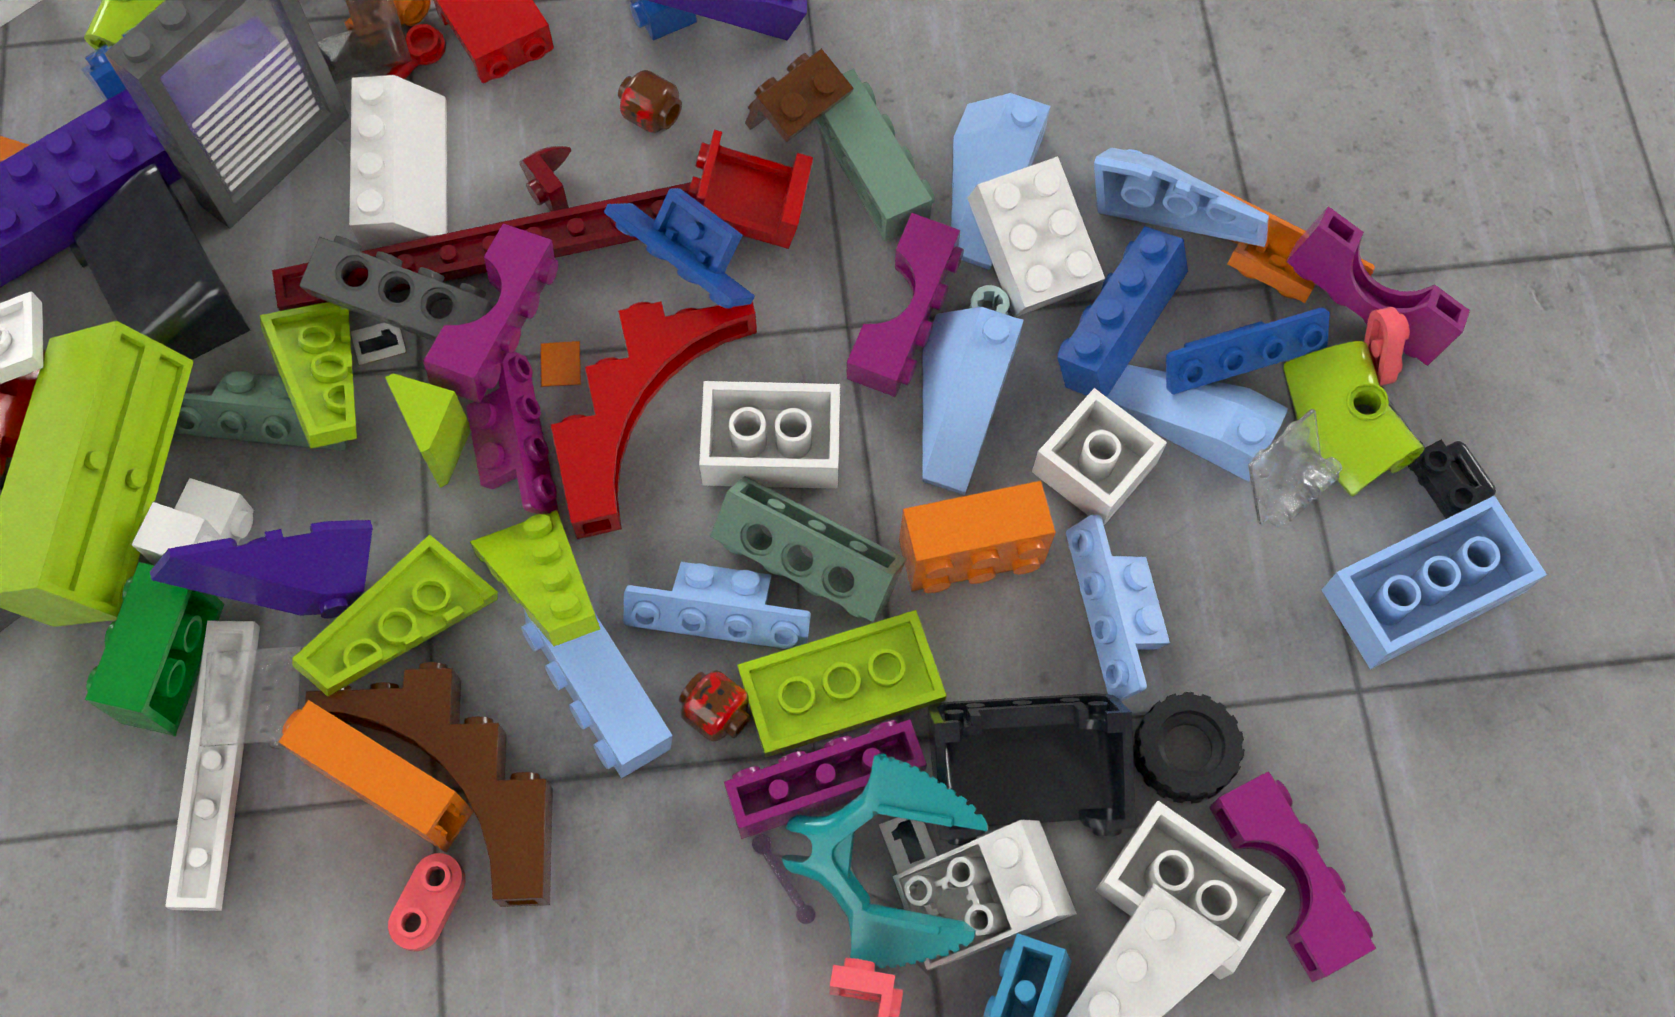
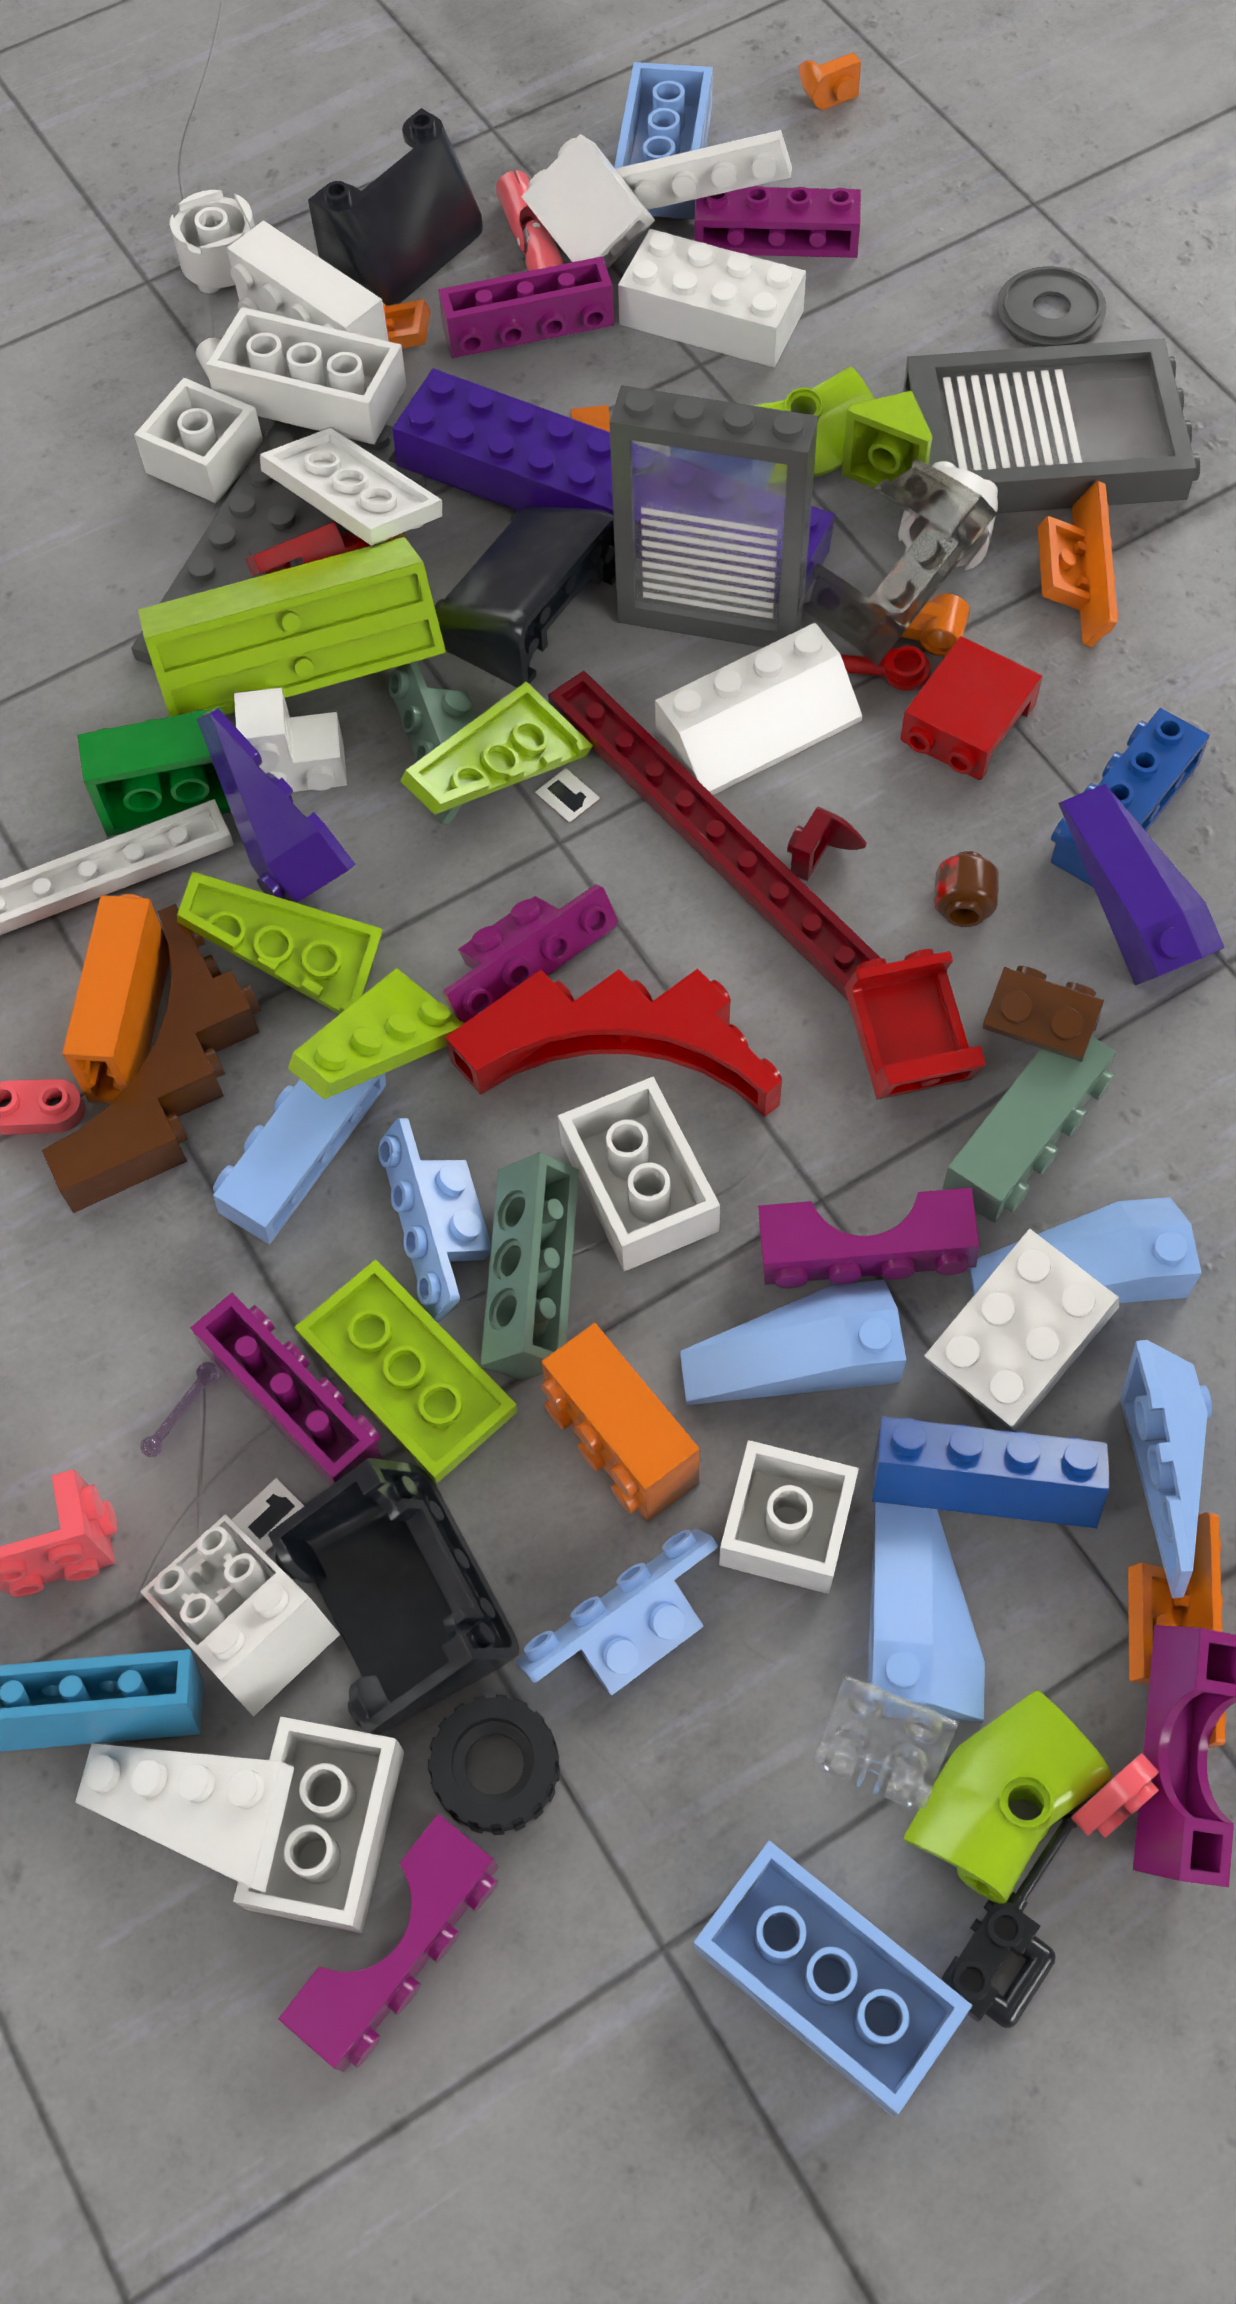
camera: 70 degrees right, 5 degrees down
(249, 696) = (156, 862): clear hinge -> none
(335, 260) = (589, 713): dark grey brick -> none
(434, 421) = (478, 871): lime slope -> none
(471, 354) = (571, 864): magenta arch -> none
(560, 364) = (630, 955): orange sticker -> none
(689, 240) = (801, 992): blue bracket -> none
(714, 705) = (325, 1259): reddish brown head -> none
(879, 931) = (281, 1466): teal piece -> none
(993, 294) = (923, 1314): light aqua bush -> none
(1246, 349) = (1015, 1627): blue bracket -> none

